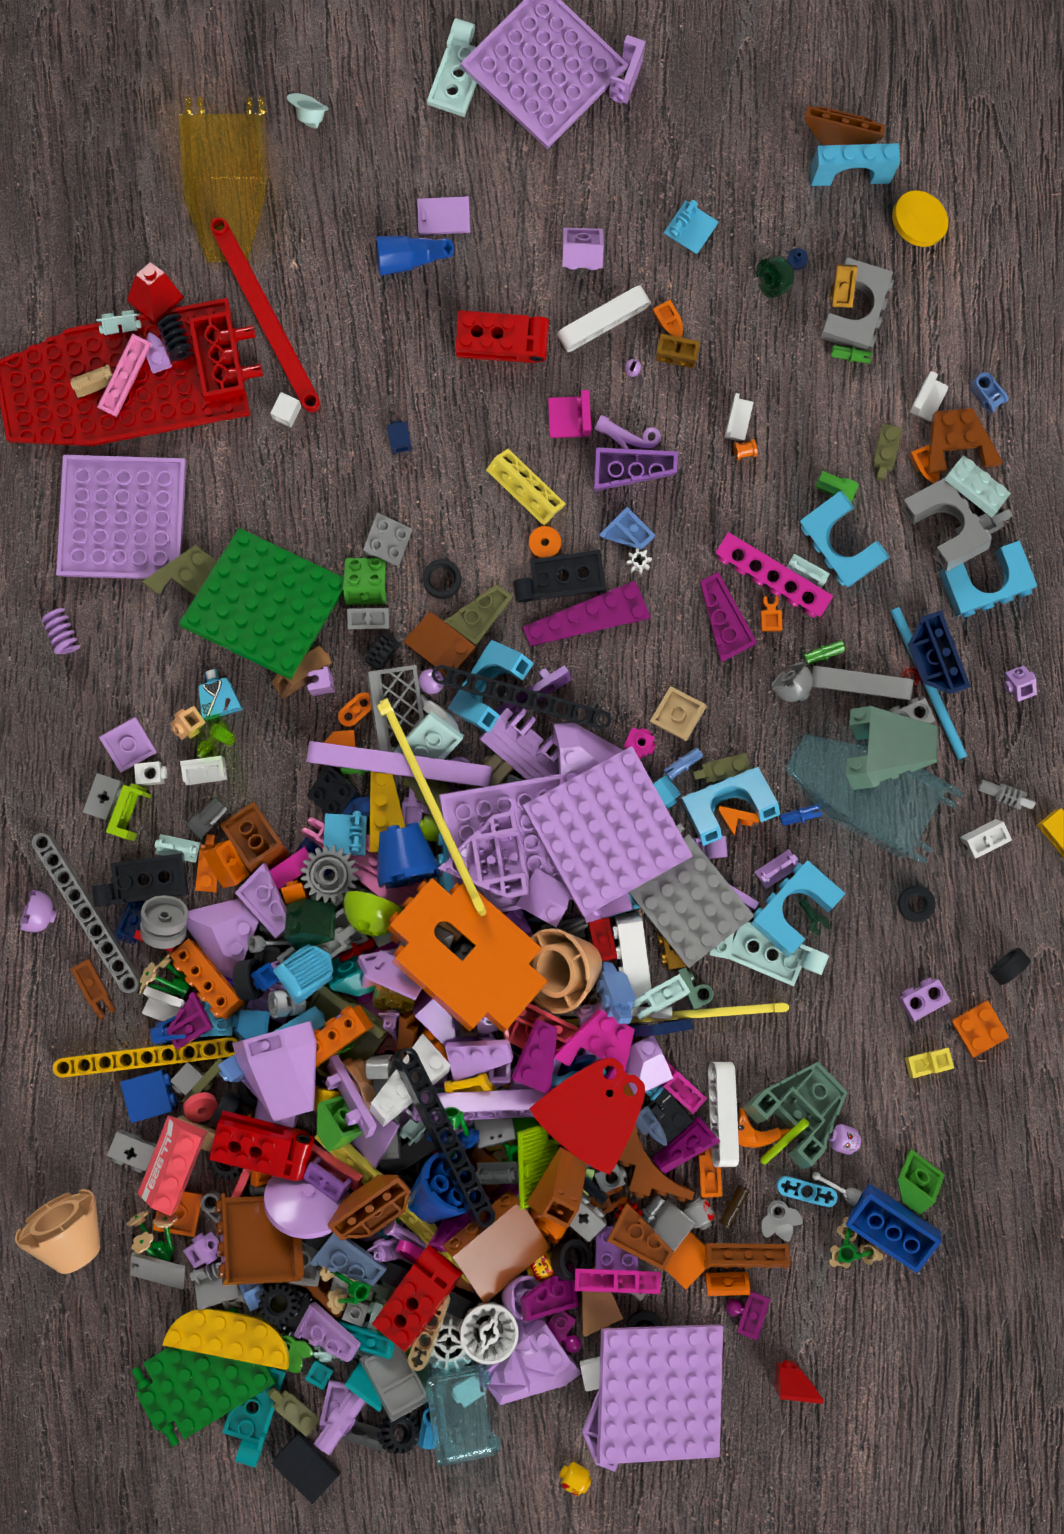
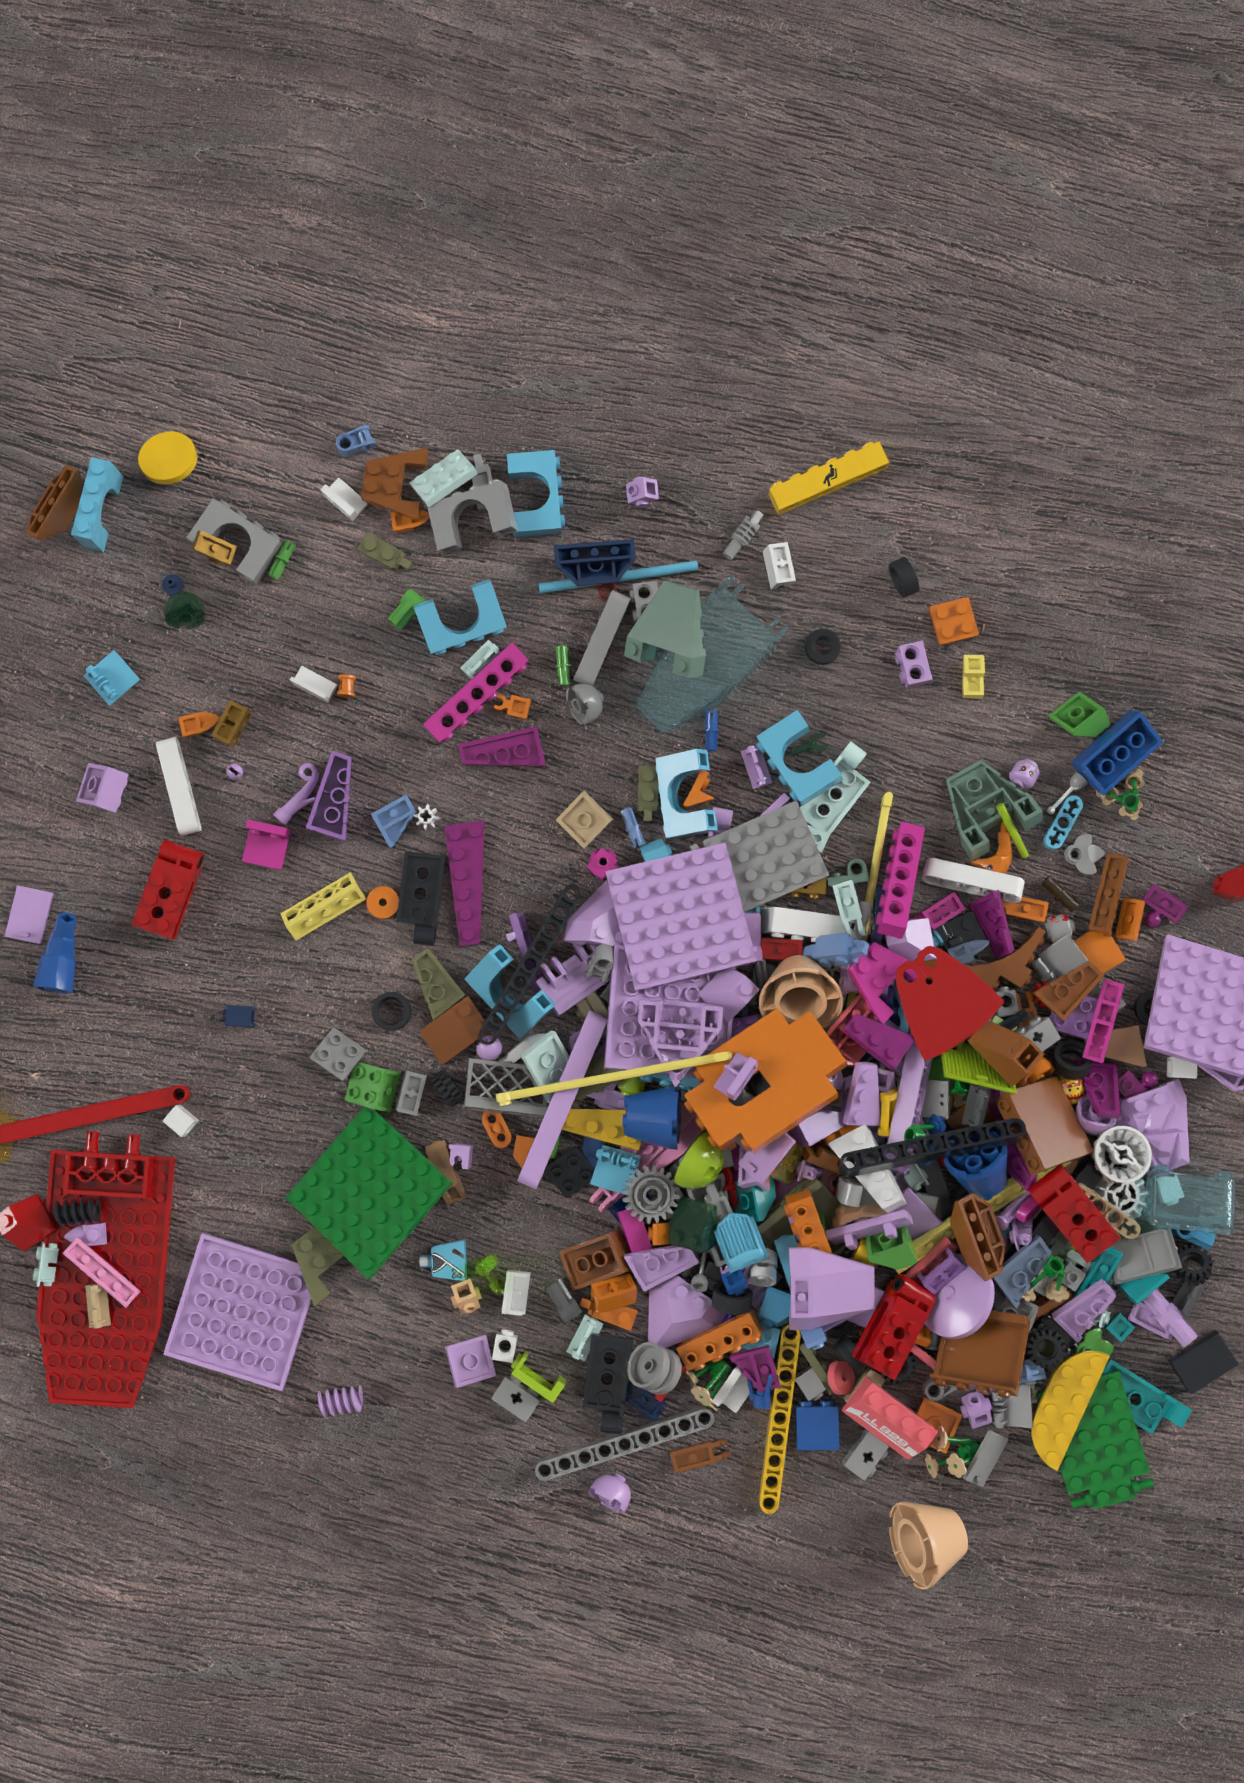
camera: 70 degrees left, 0 degrees up
(294, 1410) = (1148, 1359): olive hinge -> none
(463, 924) = (736, 1075): none -> lavender panel
(541, 765) = (600, 963): none -> light grey piece
(656, 1039) = (906, 849): none -> dark pink brick

